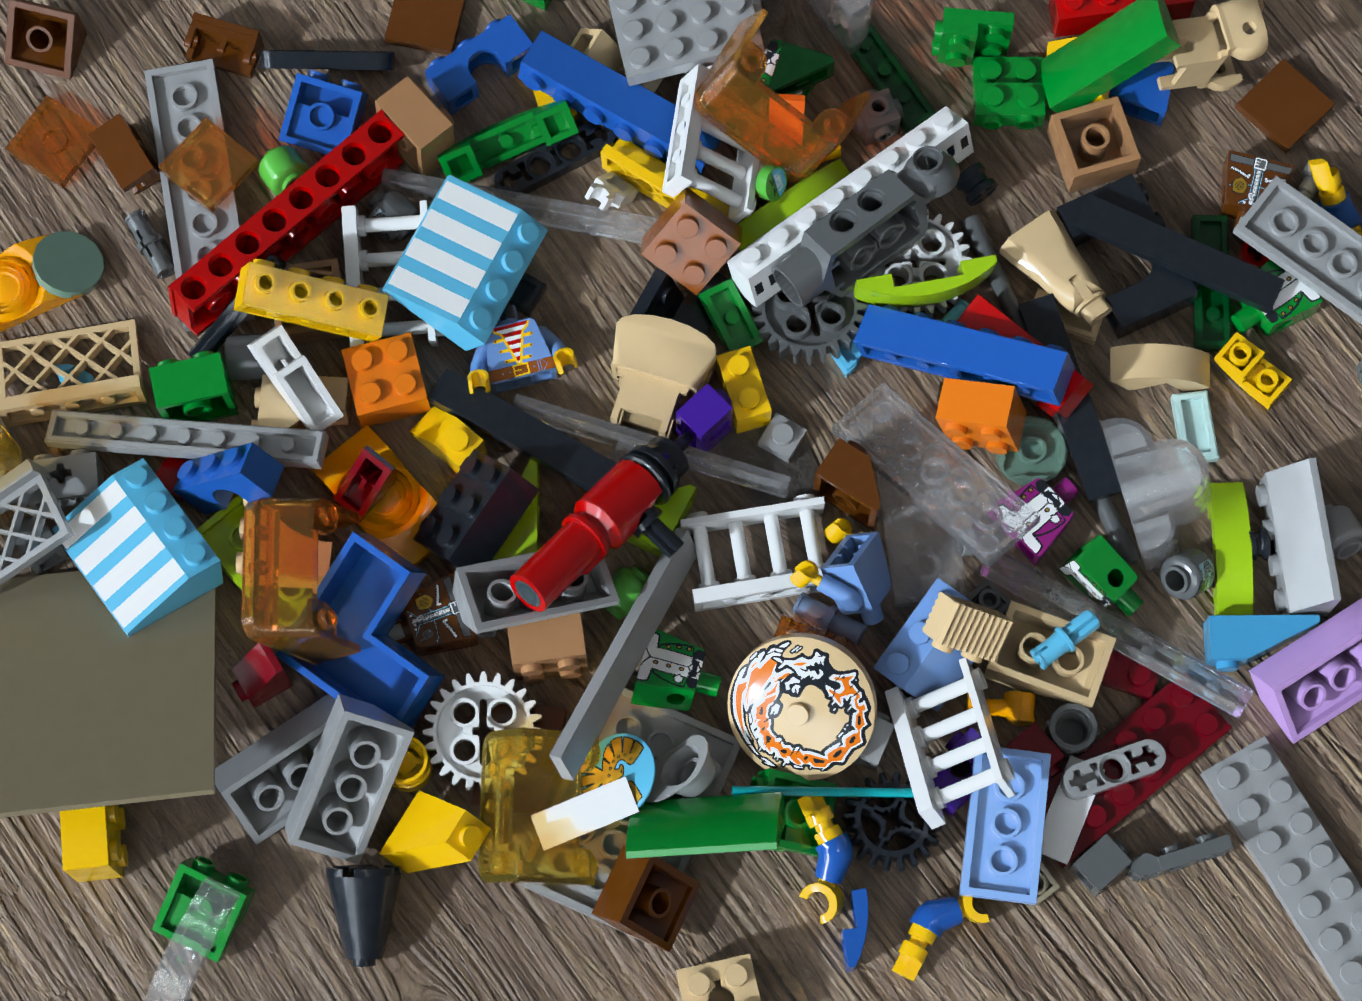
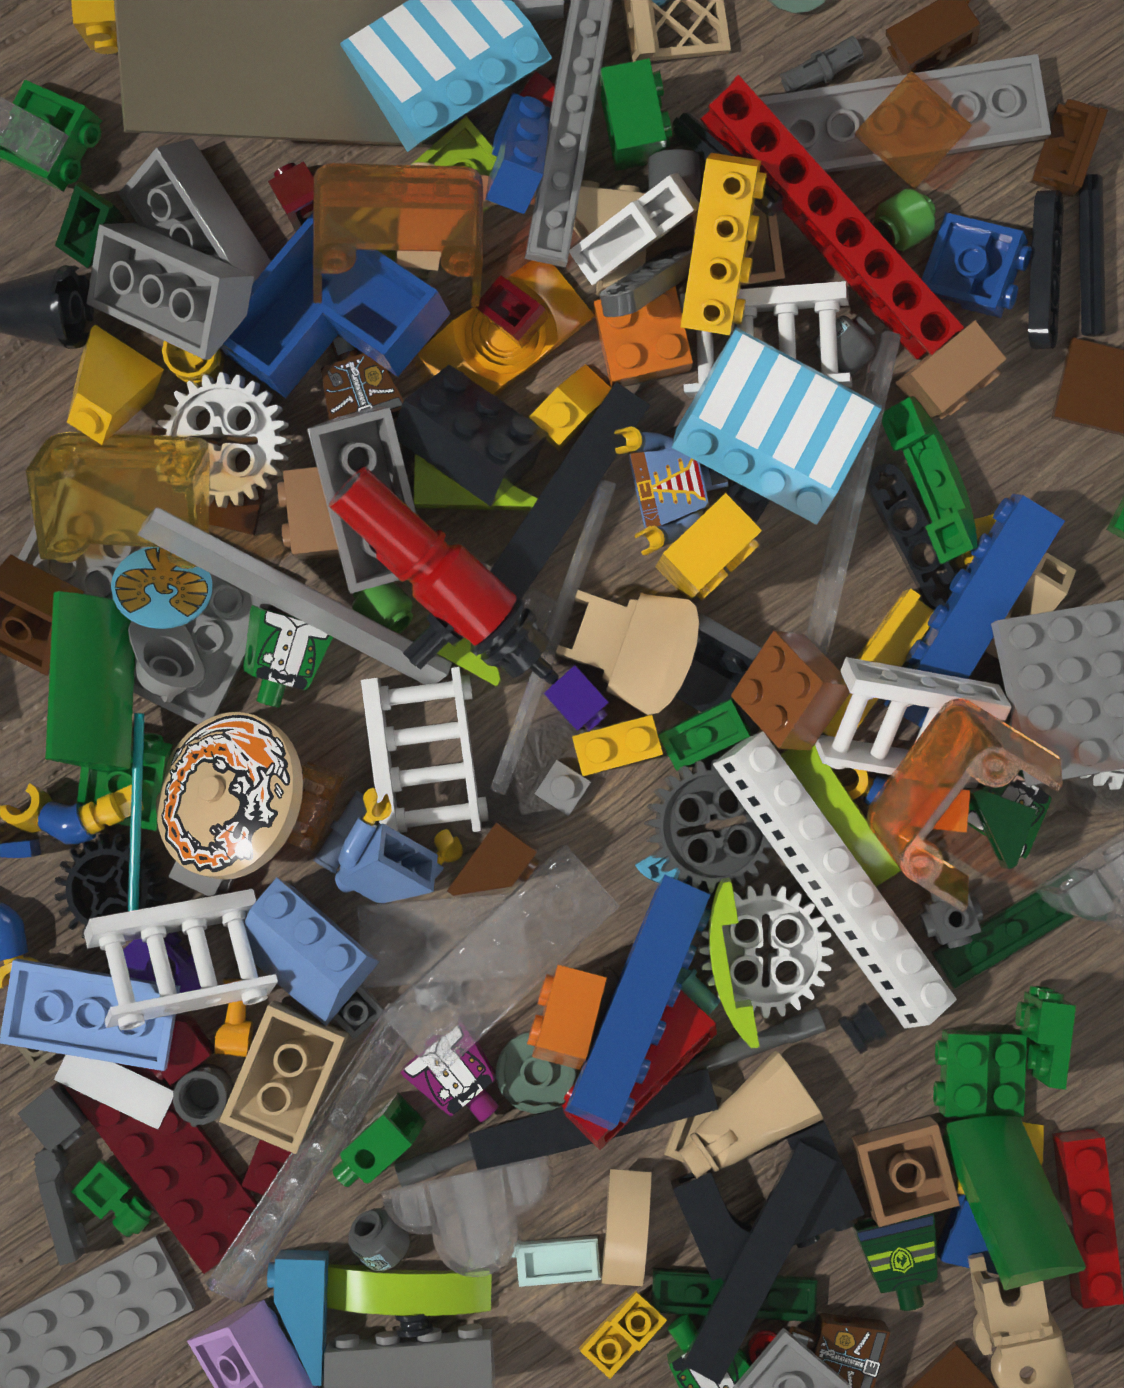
camera: 85 degrees right, 15 degrees up
(287, 866) = (82, 223): none -> dark green slope
(317, 26) = (1092, 256): none -> black axle
(341, 365) = (646, 282): none -> dark grey beam
(500, 45) = (1022, 417): blue arch -> none
(573, 304) = (713, 542): none -> yellow brick
(584, 813) = (119, 549): white sticker -> none
(611, 191) = (866, 600): white plate -> none
(771, 182) = (861, 787): bright green tile -> none
(867, 228) = (796, 899): dark grey brick -> none
(967, 628) = (304, 986): tan brick -> none
(1065, 639) = (292, 1097): medium azure axle -> none
(1134, 751) = (135, 1112): light grey beam -> none
(1164, 817) = (104, 1191): none -> green plate
(1166, 148) = (900, 1256): none -> dark green torso

